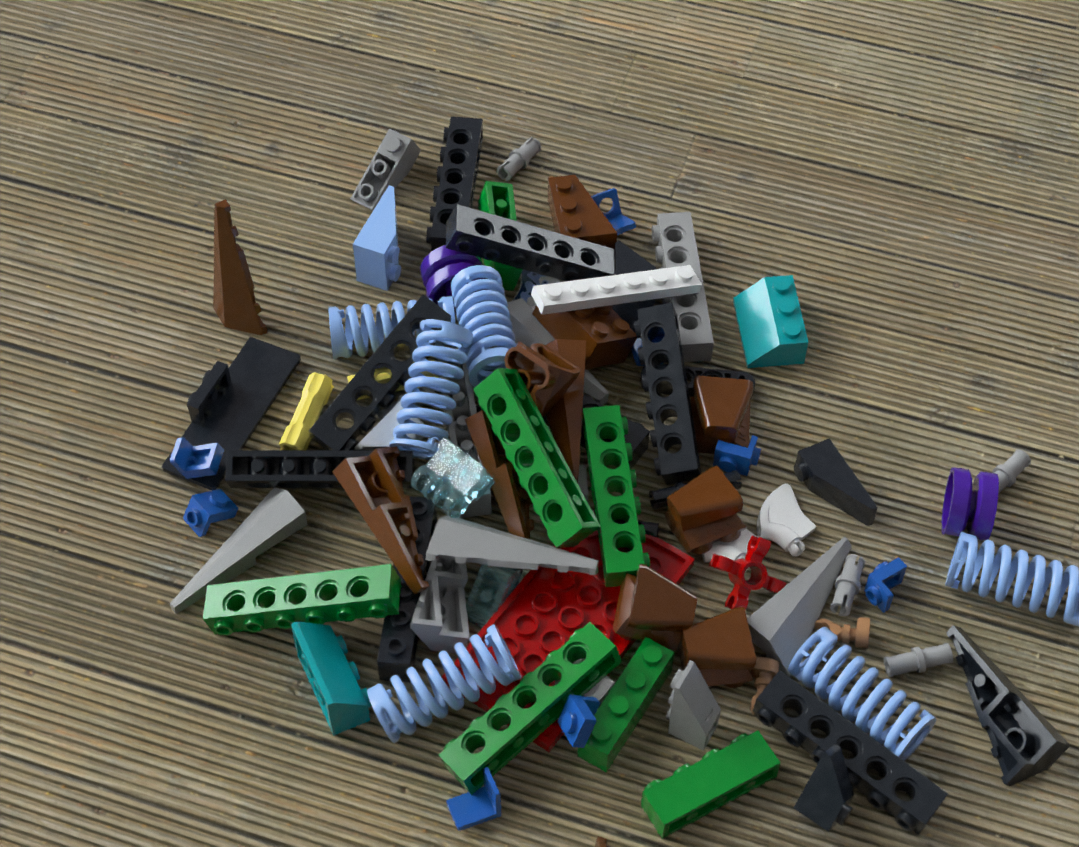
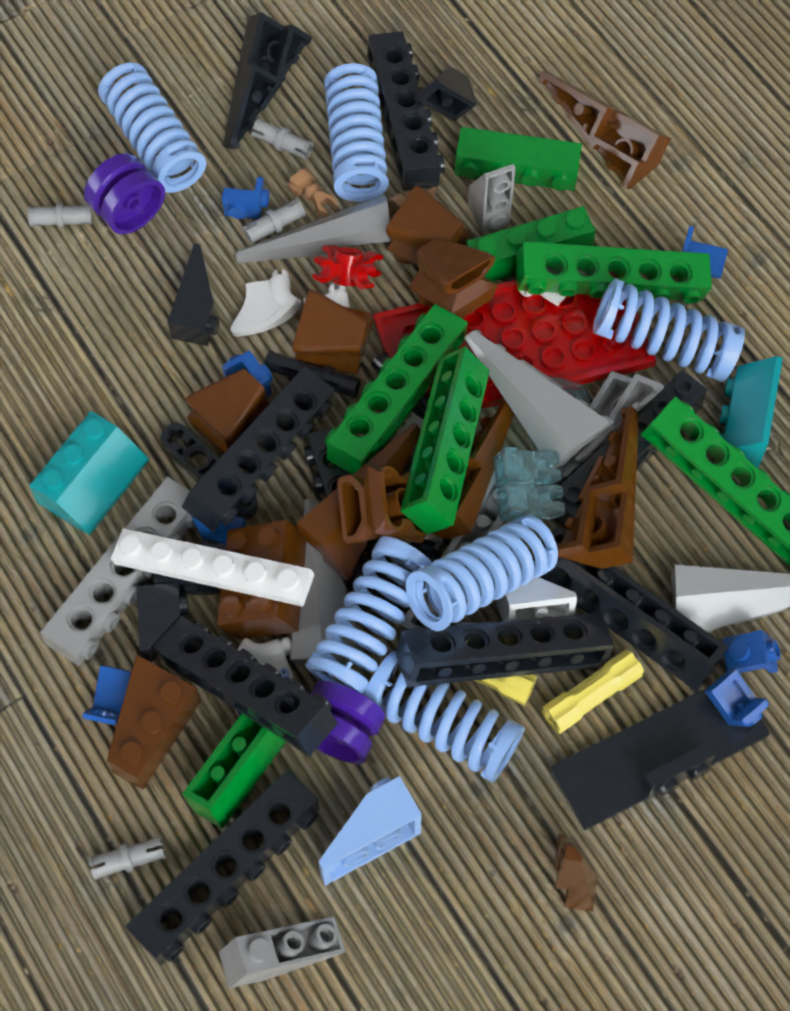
camera: 140 degrees left, 10 degrees up
(578, 719) = (591, 229): blue bracket -> none

